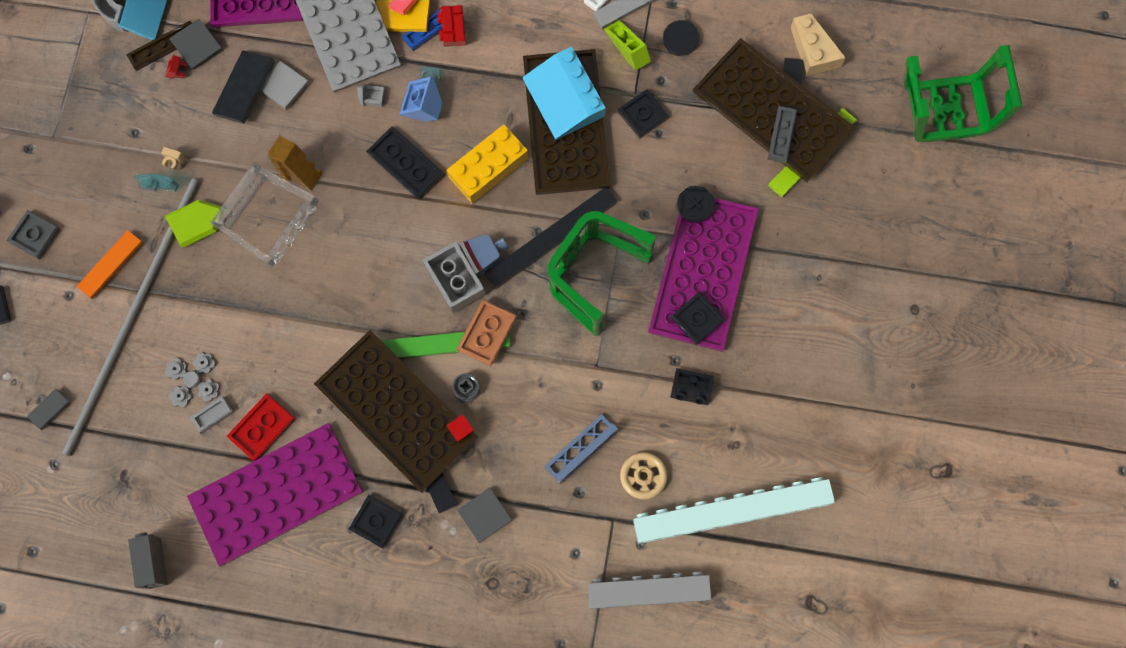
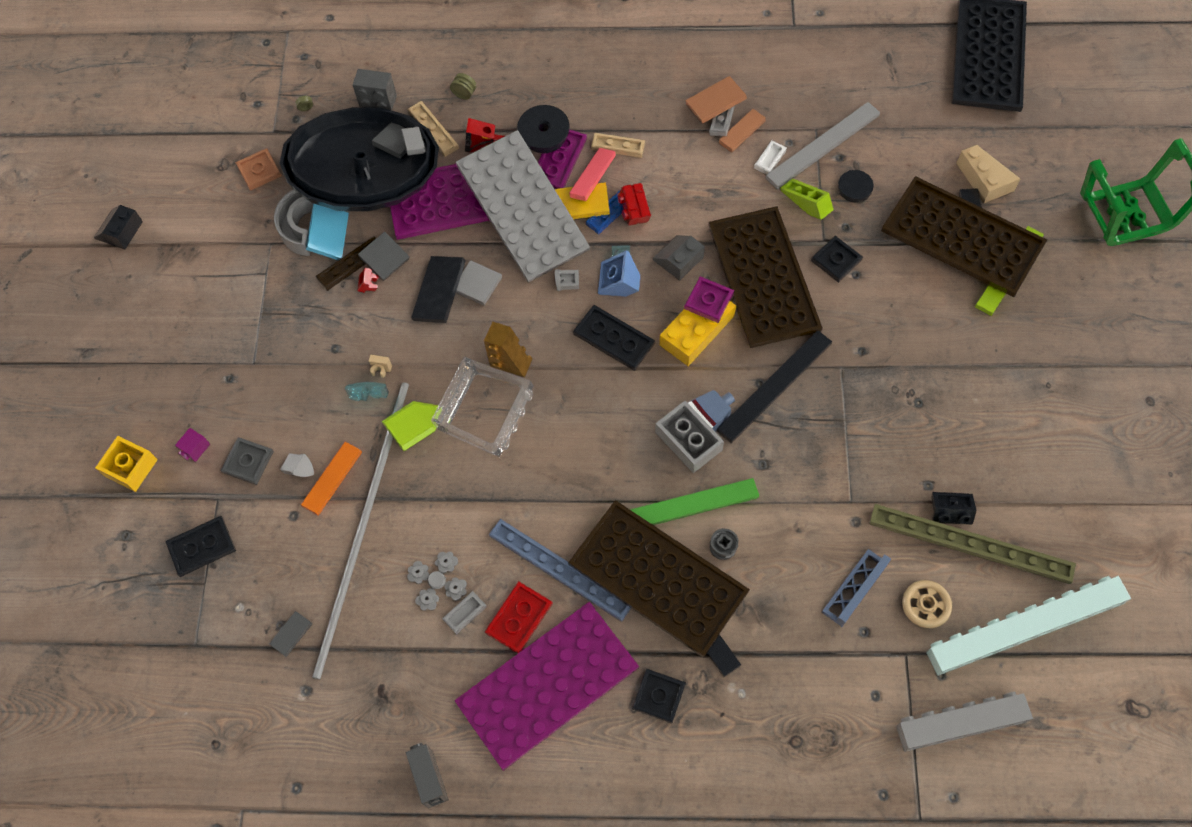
camera: 10 degrees left, 10 degrees down
(79, 248) = (297, 465): none -> light grey tile
(304, 385) = (557, 568): none -> sand blue tile
(460, 428) = (730, 583): red tile -> none
(484, 515) = (772, 671): dark grey tile -> none
(486, 333) = (733, 486): nougat tile -> none
(487, 87) = (680, 255): none -> dark grey slope
(500, 141) = (709, 299): none -> magenta tile
(564, 94) = (759, 249): medium azure slope -> none
(573, 245) = (814, 373): green windscreen -> none
(695, 204) = (911, 332): black tile -> none
(697, 318) = (942, 440): black tile -> none
(701, 424) = (973, 544): none -> olive plate
(705, 260) = (934, 396): magenta plate -> none
(782, 134) = (979, 255): dark grey tile -> none

